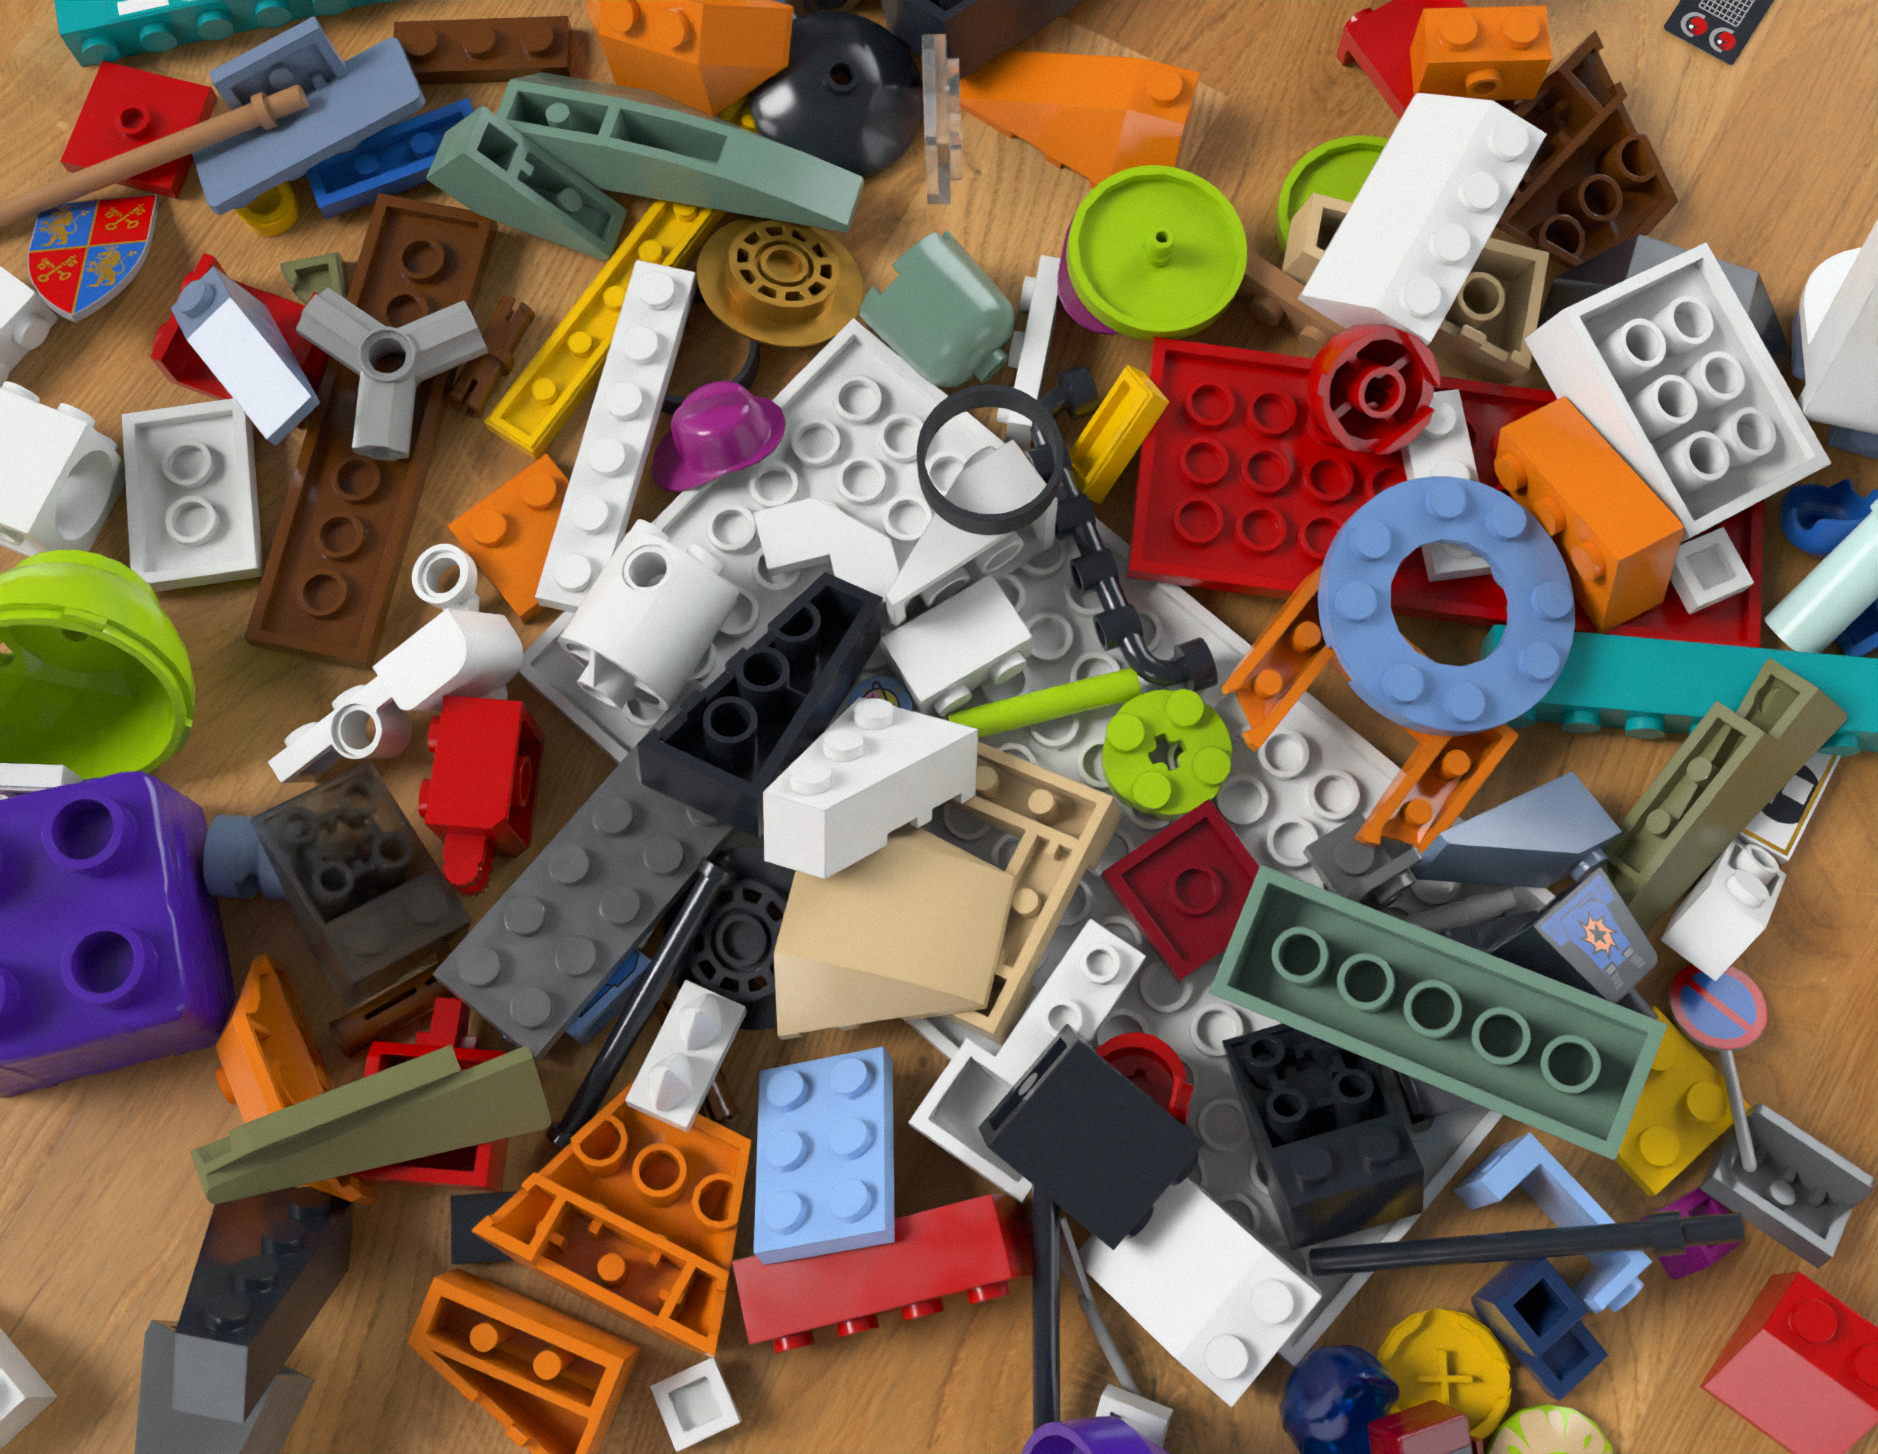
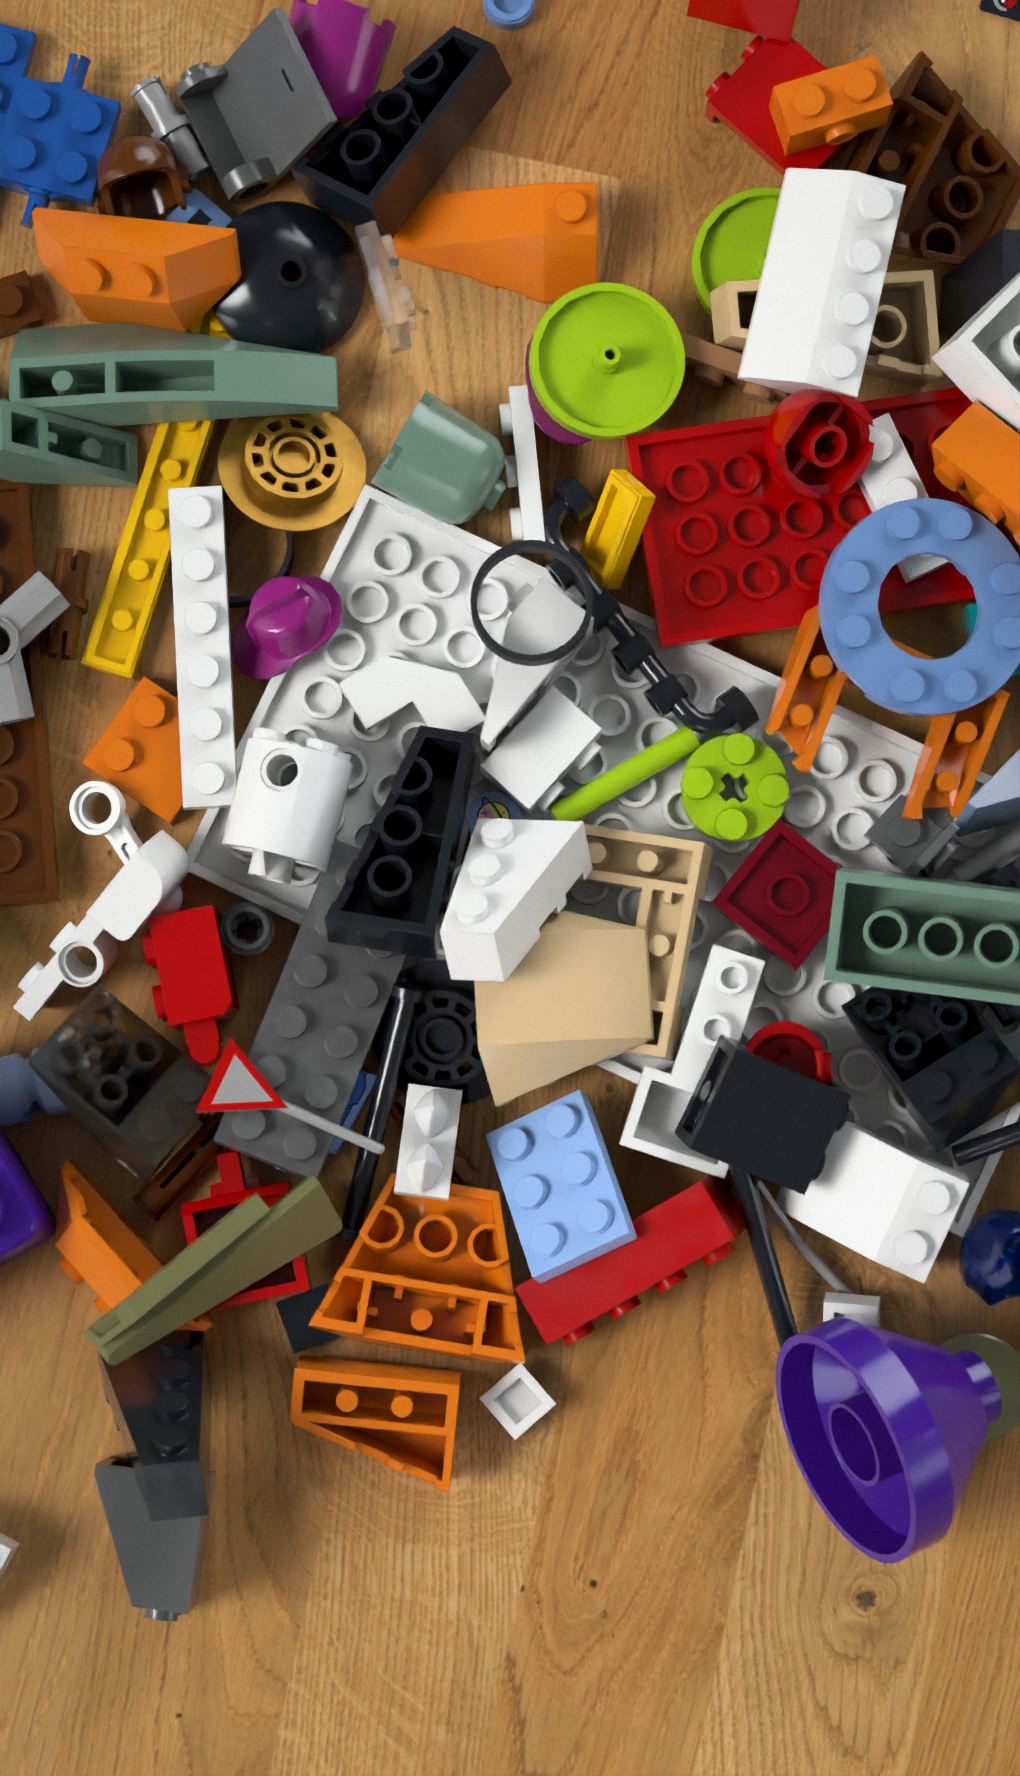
camera: 20 degrees left, 10 degrees up
(484, 921) = (241, 1087): none -> piece
(556, 739) = (247, 914): none -> dark grey cone

